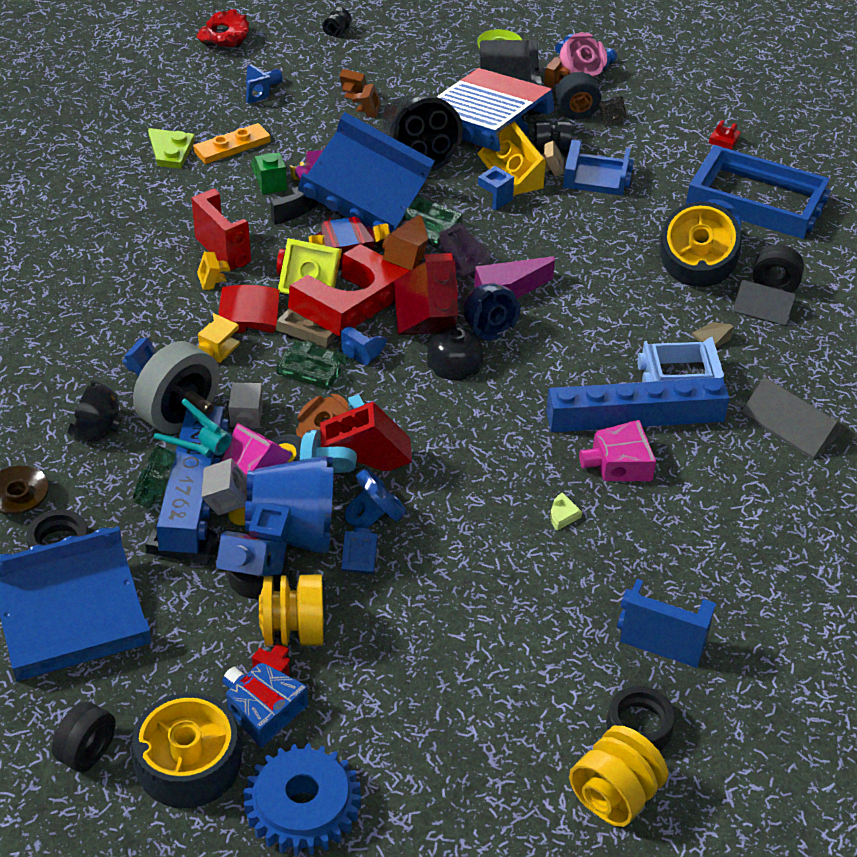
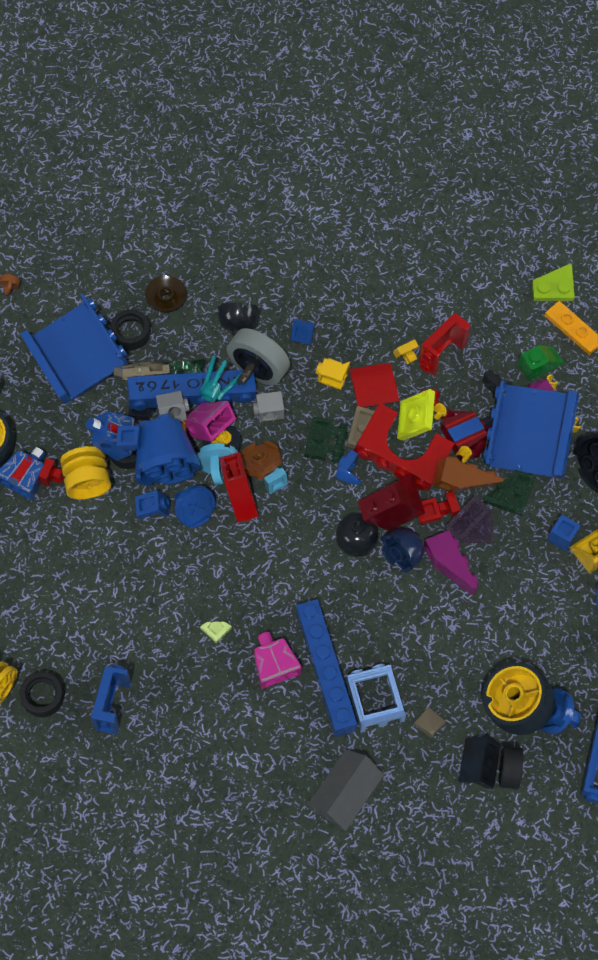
camera: 80 degrees right, 20 degrees up
(141, 521) = (141, 369): none -> dark tan wing

